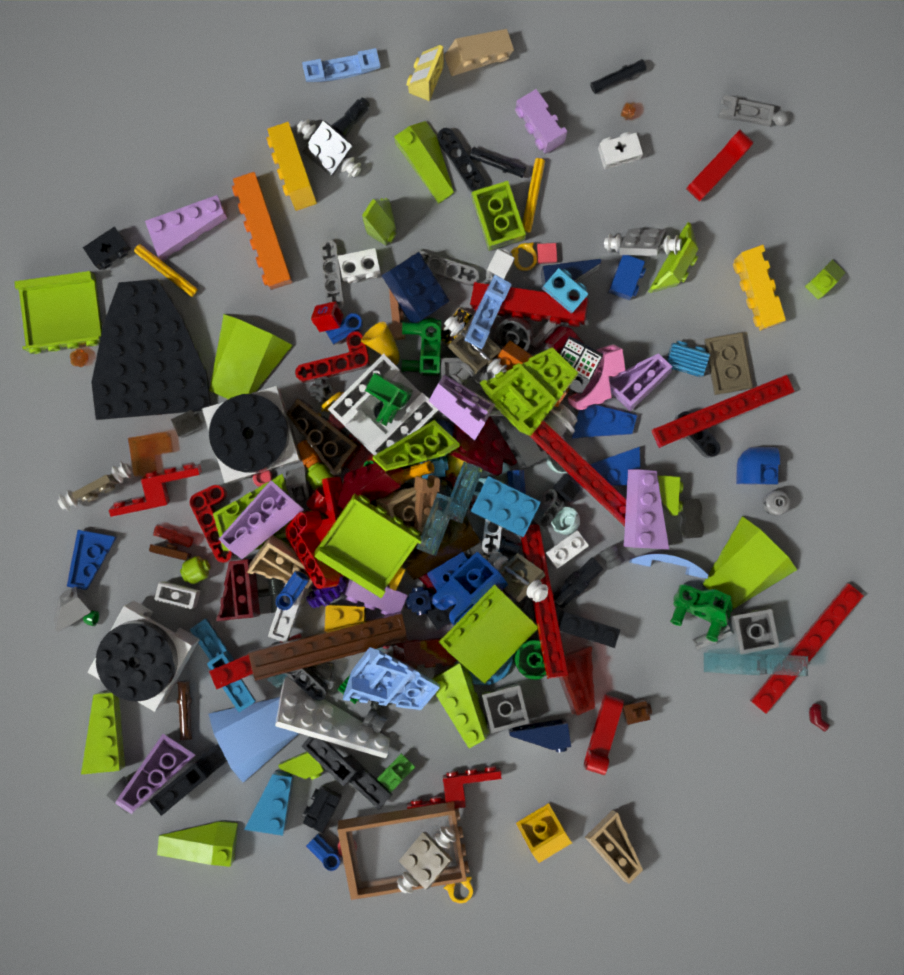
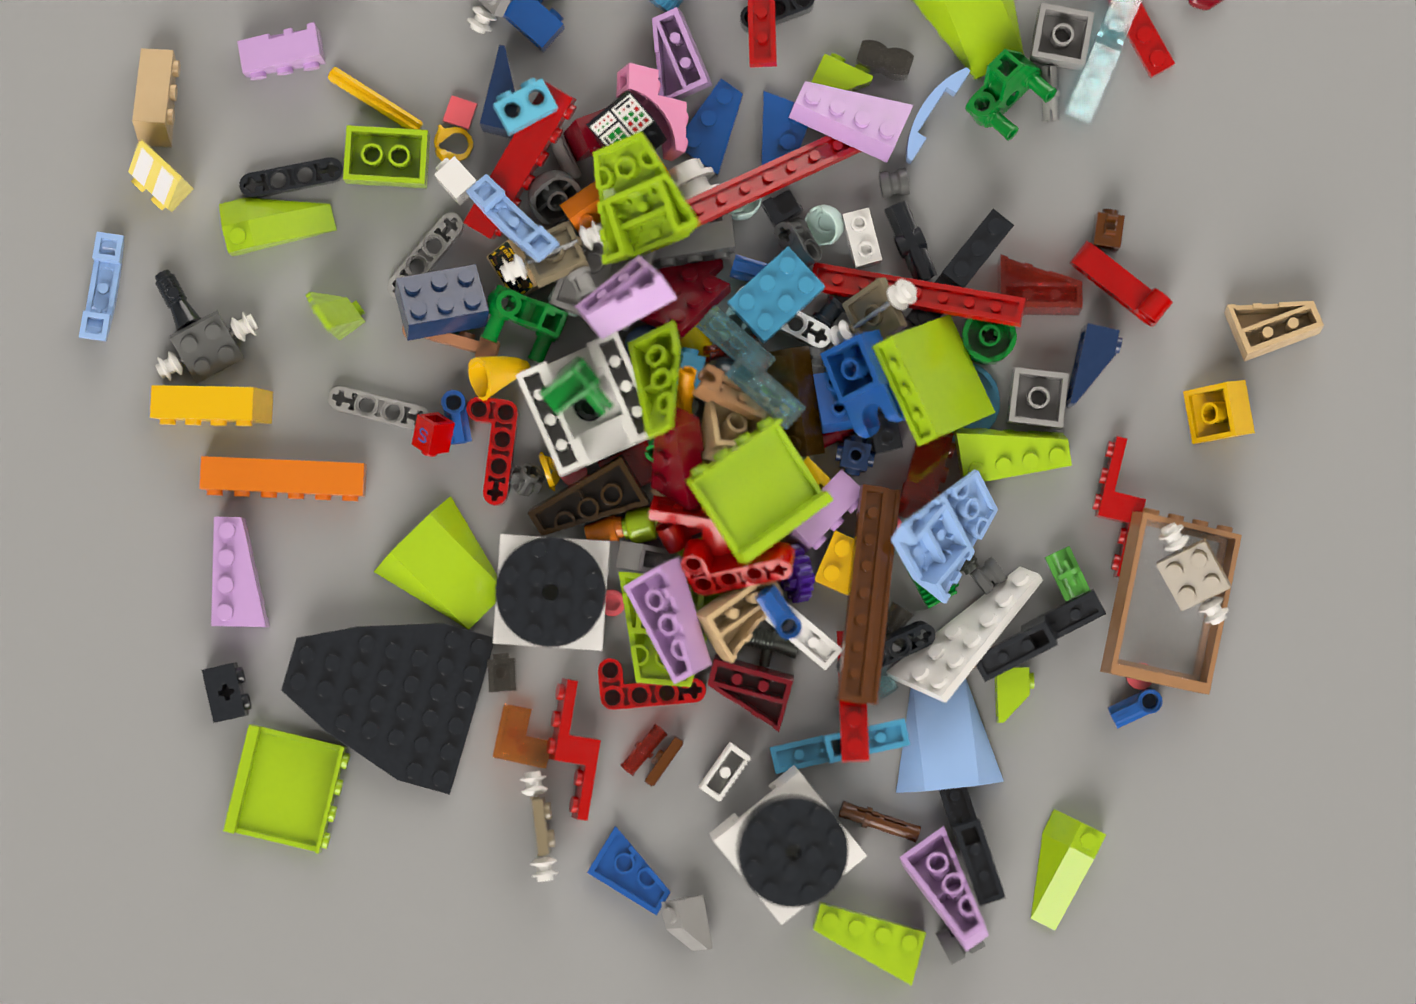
camera: 75 degrees left, 0 degrees up
(83, 358) = (351, 781): clear orange plate -> none
(91, 618) = (711, 899): green hinge -> none
(165, 270) = (284, 626): yellow axle -> none
(195, 570) = (700, 736): lime head -> none
(273, 807) = (1049, 751): dark azure wedge -> none
(322, 808) = (1077, 689): black brick -> none
(358, 259) = (372, 365): white brick -> none
(450, 888) = (1243, 561): yellow piece -> none
(478, 153) = (336, 107): black pin -> none

